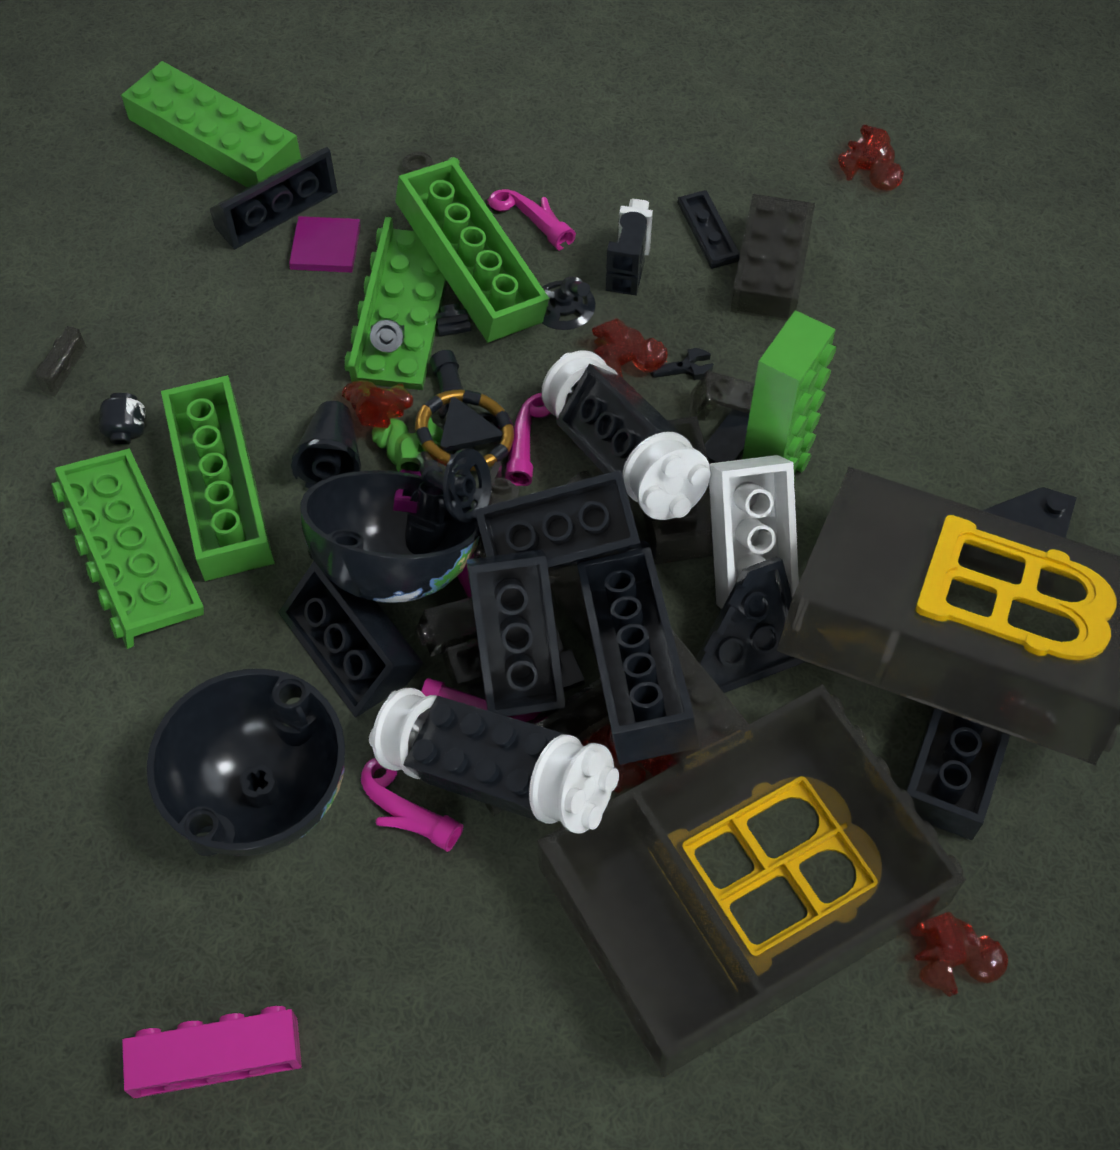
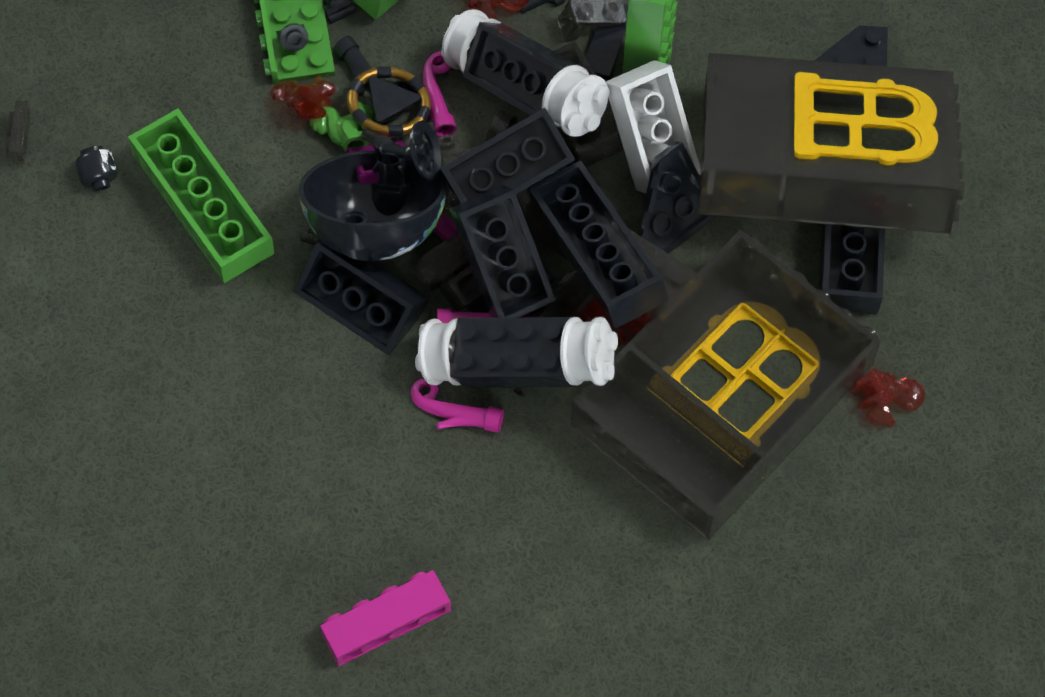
camera: 20 degrees left, 5 degrees up
(125, 545) = (147, 271): bright green bracket -> none
(228, 742) = (312, 395): black piece -> none
(327, 445) = (283, 147): black cone -> none

